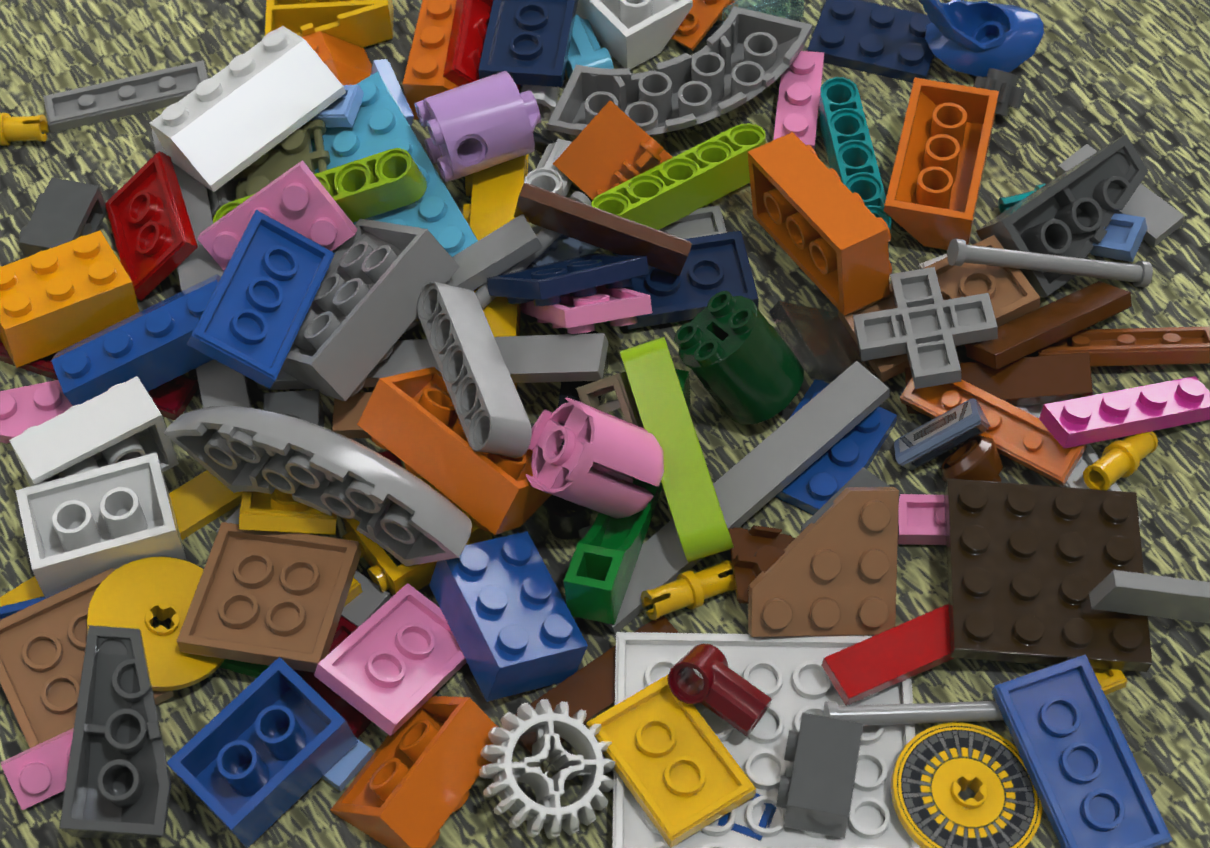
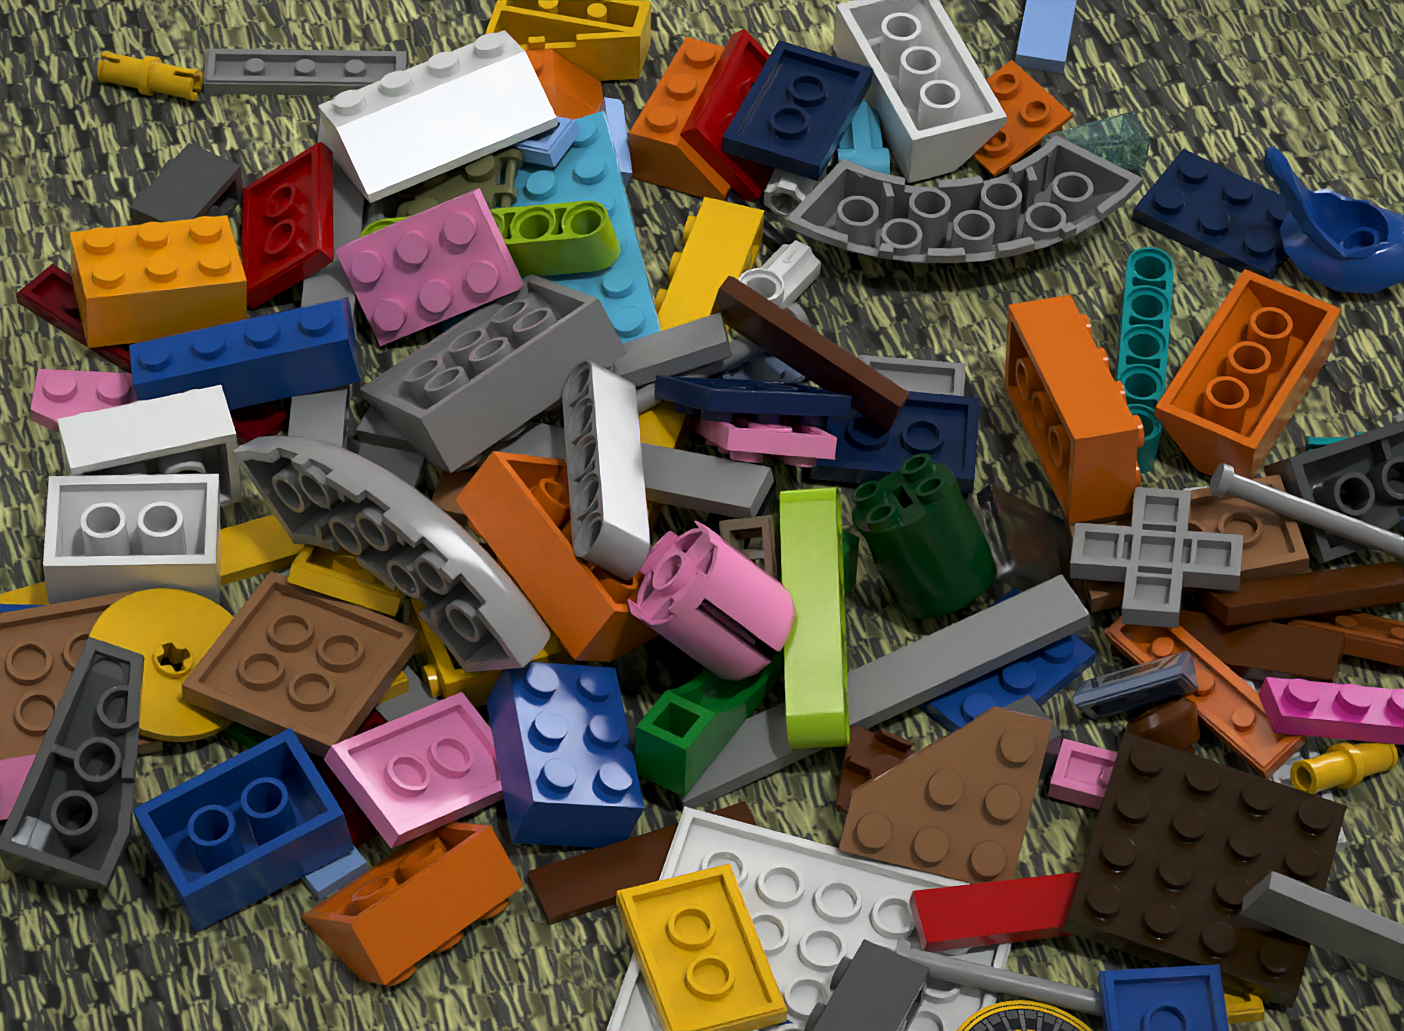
camera: 10 degrees right, 5 degrees down
(261, 299) = (387, 333): blue tile -> none
(478, 125) = (700, 199): lavender cylinder -> none
(549, 729) = (509, 922): white gear -> none
(609, 152) = (851, 279): orange hinge -> none
(686, 180) = (928, 324): lime beam -> none
(688, 590) = (783, 782): yellow pin -> none
(719, 690) = (778, 893): dark red piece -> none
(800, 98) = (1102, 263): bright pink plate -> none
(1006, 84) = (1356, 312): dark grey gear -> none

